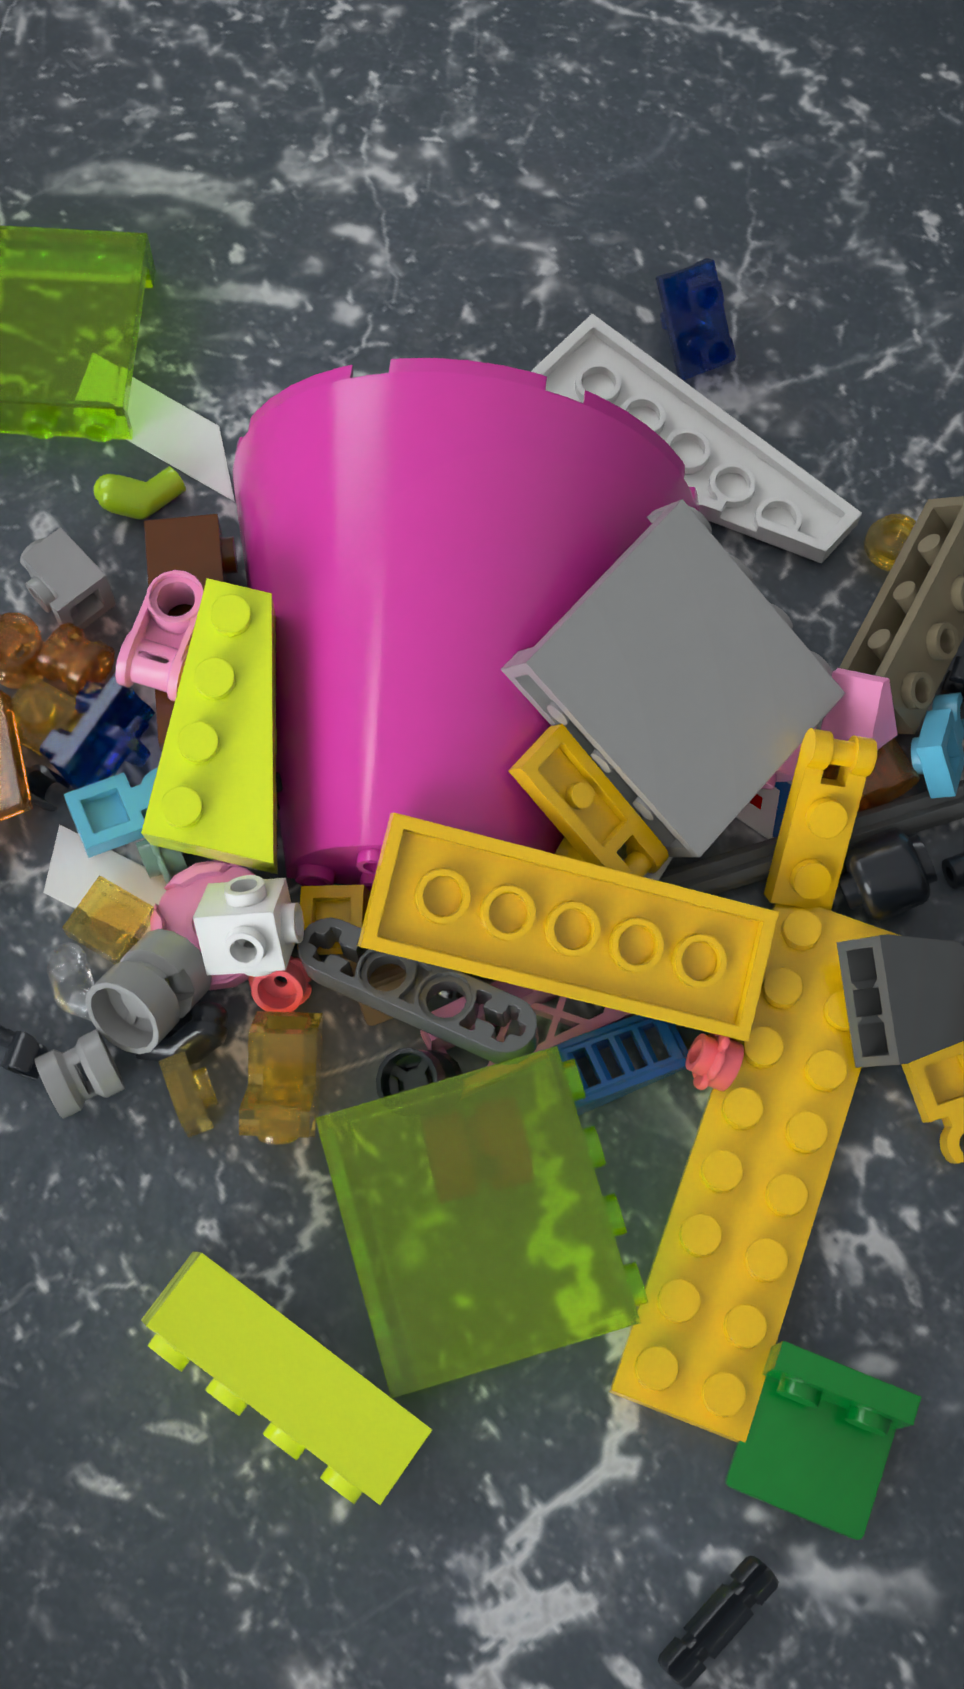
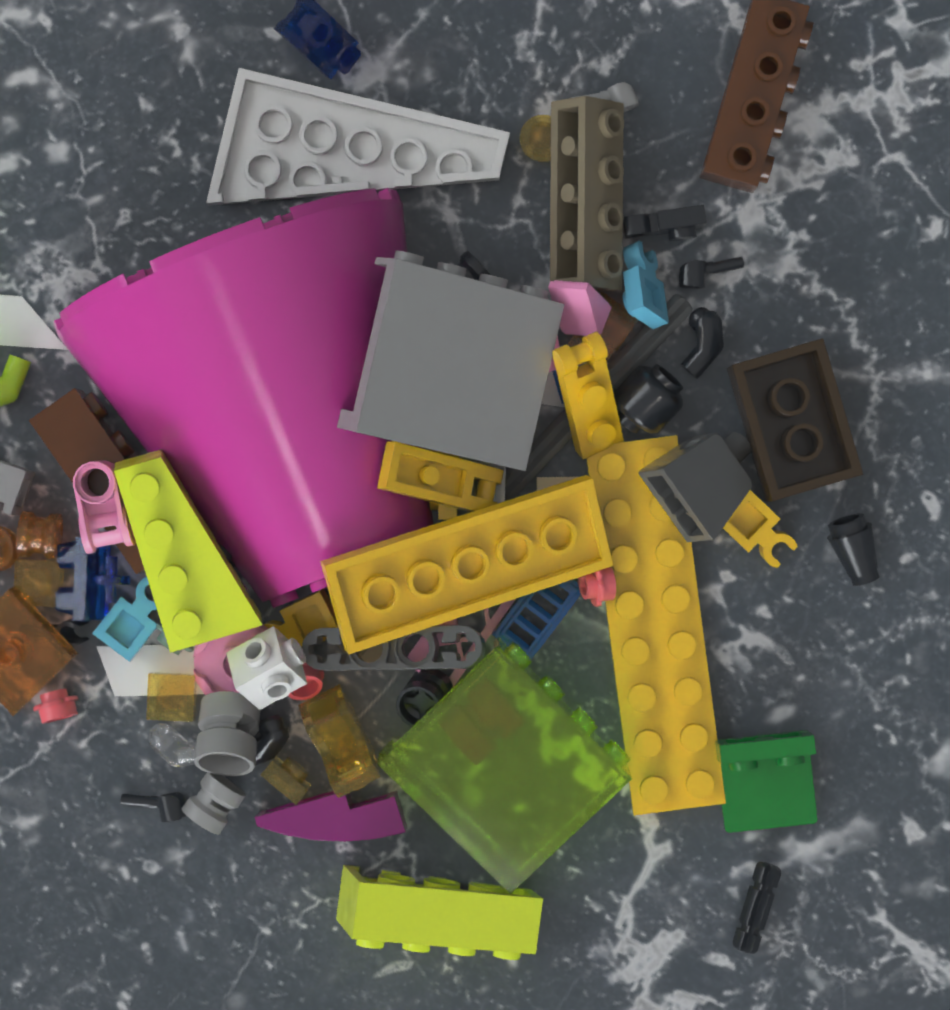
camera: 25 degrees left, 20 degrees up
(222, 1176) = (336, 819): none -> magenta slope

